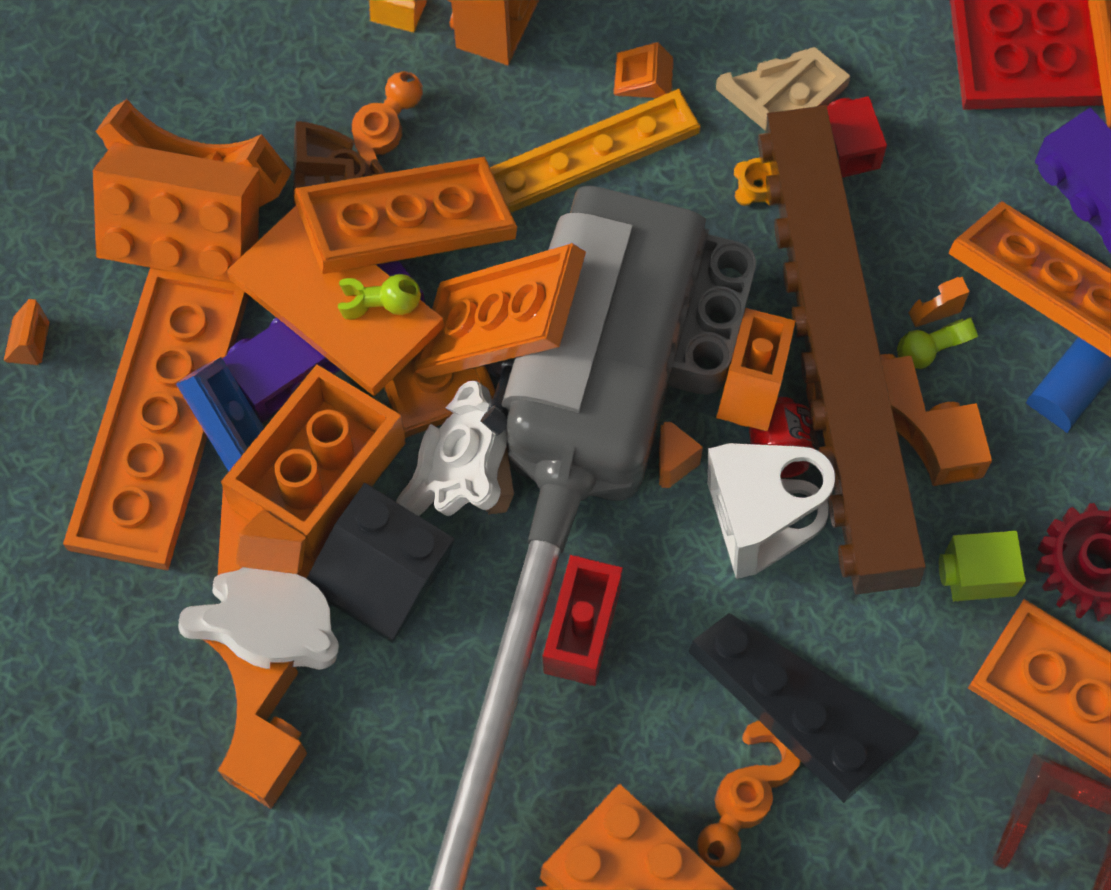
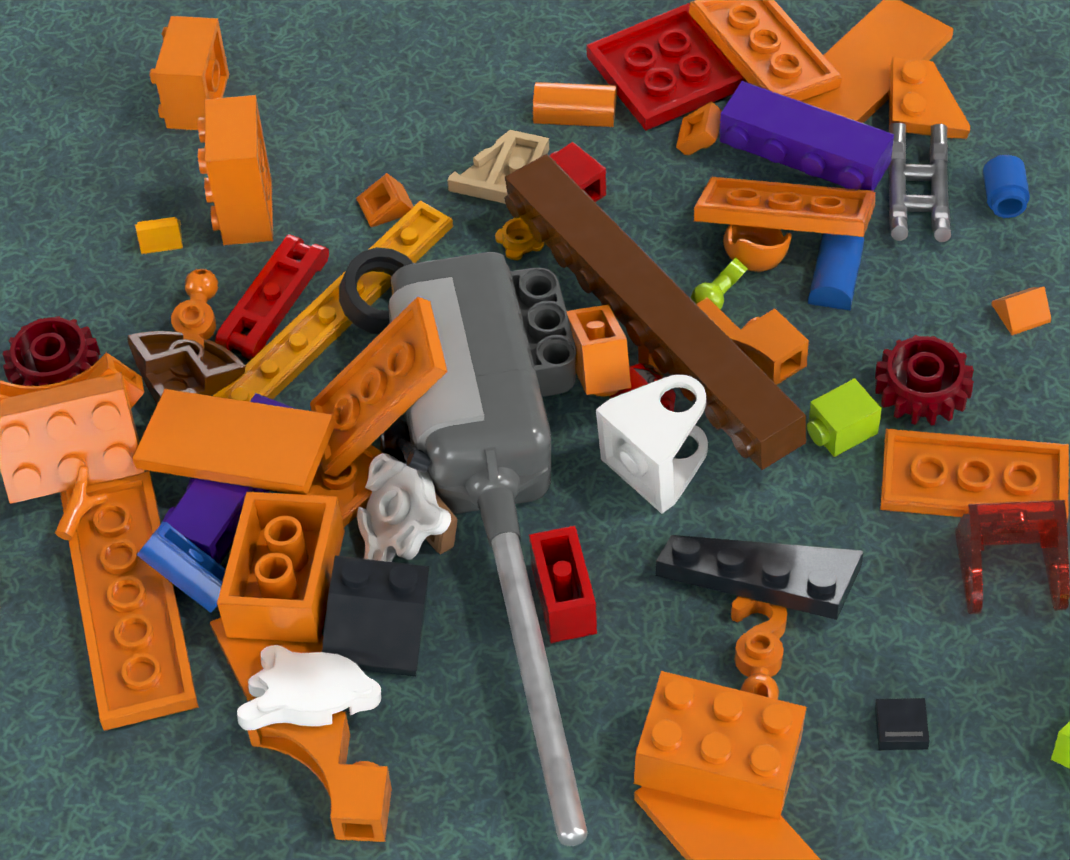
camera: 25 degrees left, 15 degrees down
(154, 294) = (77, 505): none -> orange bar
(213, 85) = (49, 352): none -> dark red gear
(270, 545) = (284, 633): orange slope -> none
(397, 294) = (287, 410): lime arm -> none
(404, 214) = (255, 362): orange tile -> none
(478, 125) = (271, 296): none -> red plate
(573, 145) = (353, 306): none -> black tyre
(677, 454) = (567, 443): orange slope -> none
(902, 43) = (574, 104): none -> orange brick
(946, 304) = (709, 261): orange tile -> none
(990, 306) = (756, 247): none -> orange hair
(1019, 137) = (699, 129): none -> orange plate

